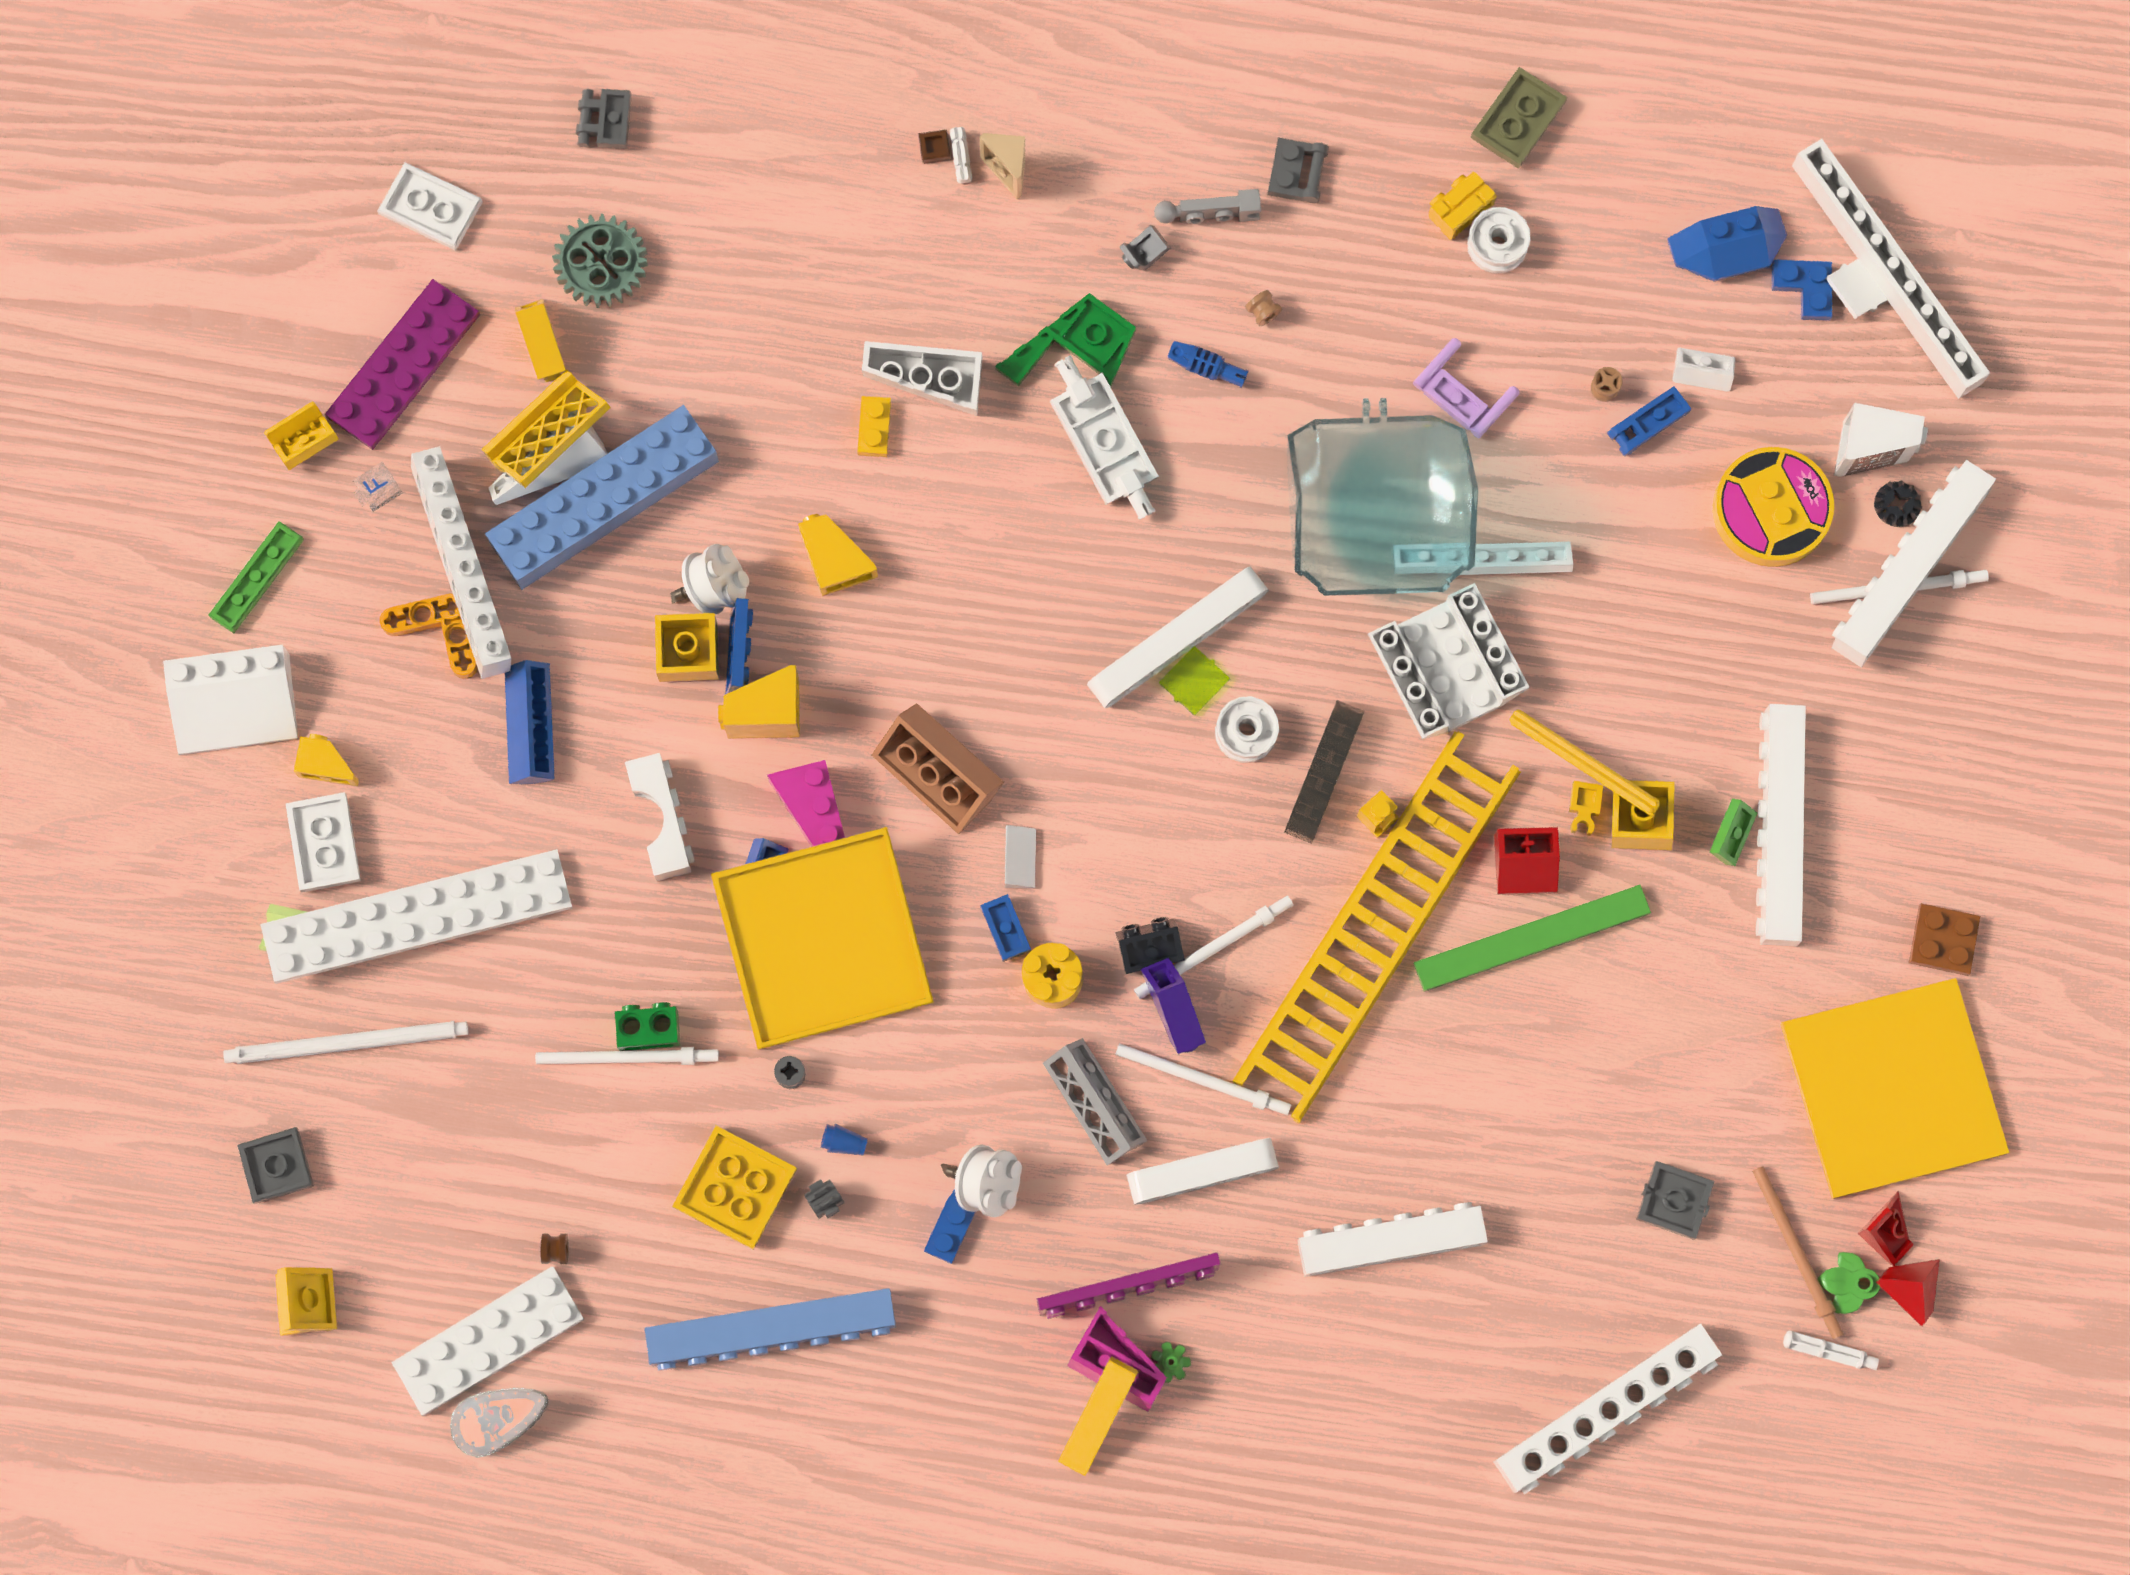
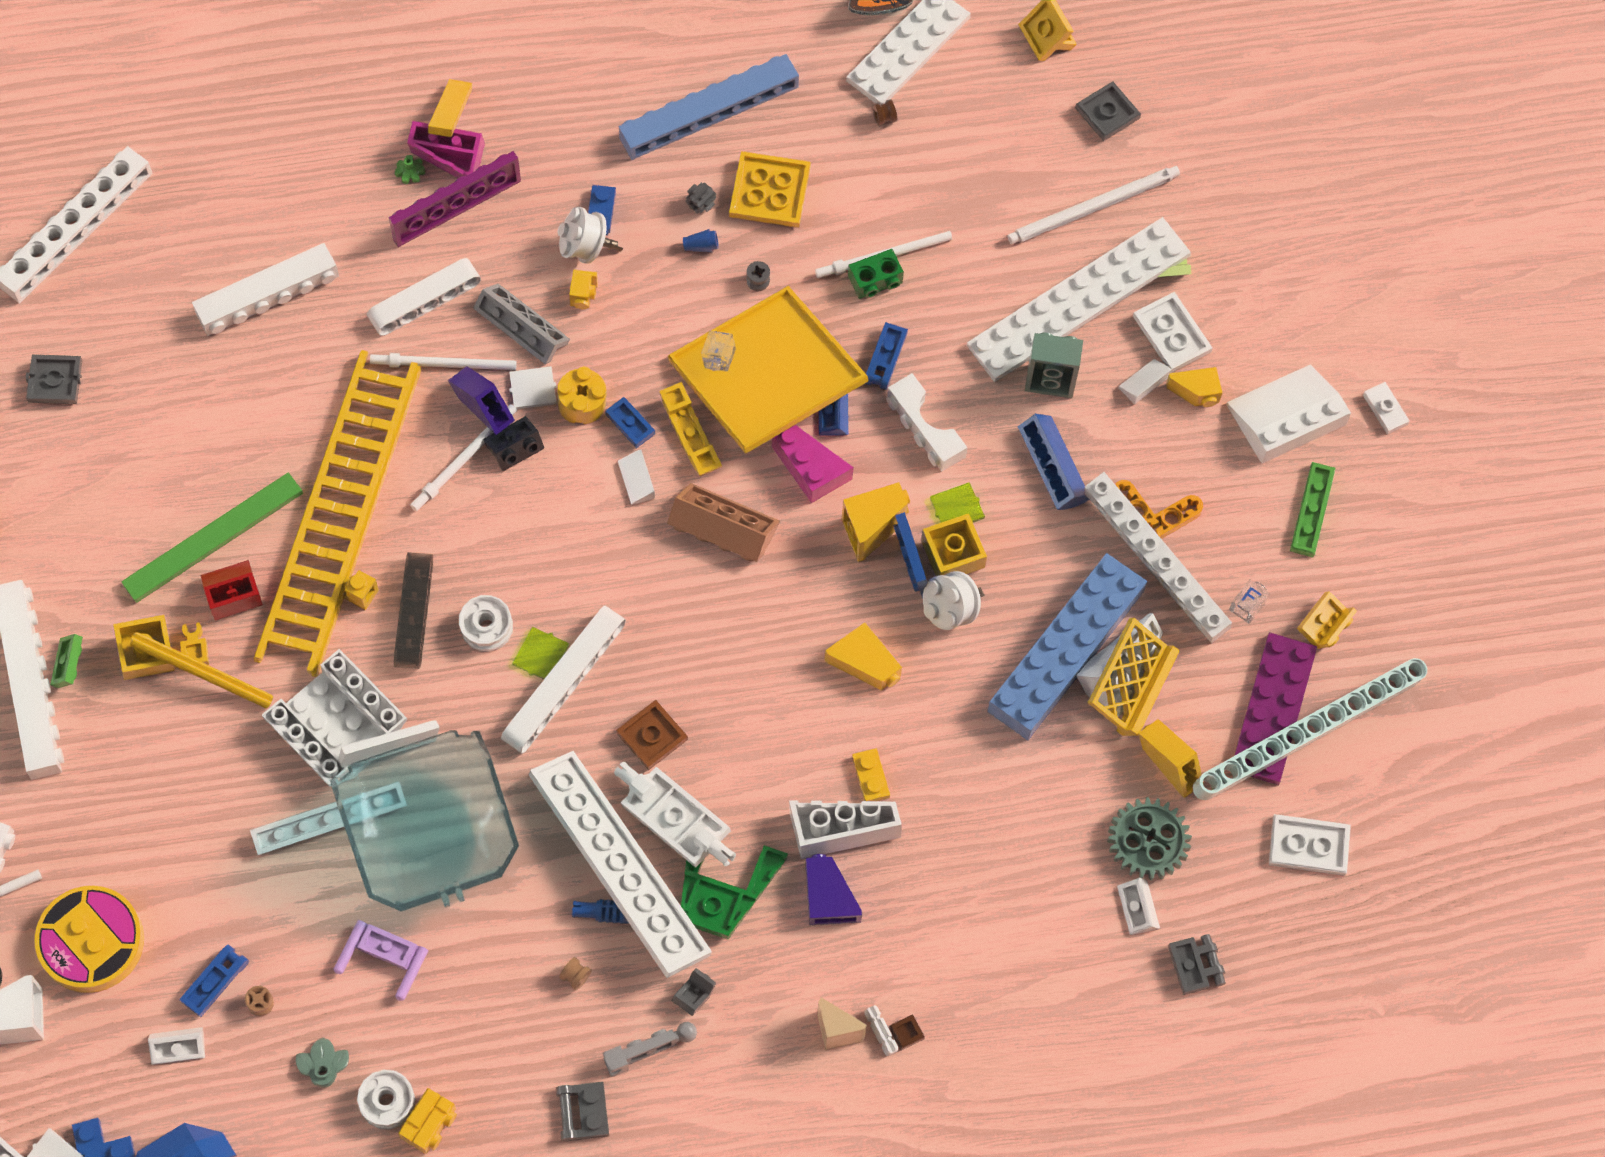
camera: 160 degrees right, 10 degrees down
(115, 672) = (1386, 408): none -> white plate
(362, 310) = (1302, 735): none -> light aqua beam
(380, 793) = (1145, 380): none -> white slope
(485, 823) = (1053, 365): none -> brick
(640, 198) = (1138, 906): none -> white slope
(661, 708) = (956, 503): none -> clear neon green piece
(674, 919) = (886, 355): none -> blue plate
(874, 974) = (718, 351): none -> clear brick
(938, 892) = (689, 429): none -> yellow slope
(967, 307) = (828, 893): none -> dark purple slope
(1008, 1119) = (583, 288): none -> yellow brick
(1099, 543) = (652, 734): none -> dark orange plate
(1105, 1014) = (533, 388): none -> white piece
(1182, 404) = (620, 864): none -> white plate
(1396, 611) = (383, 743): none -> white tile
(1553, 305) = (320, 1059): none -> sand green plate

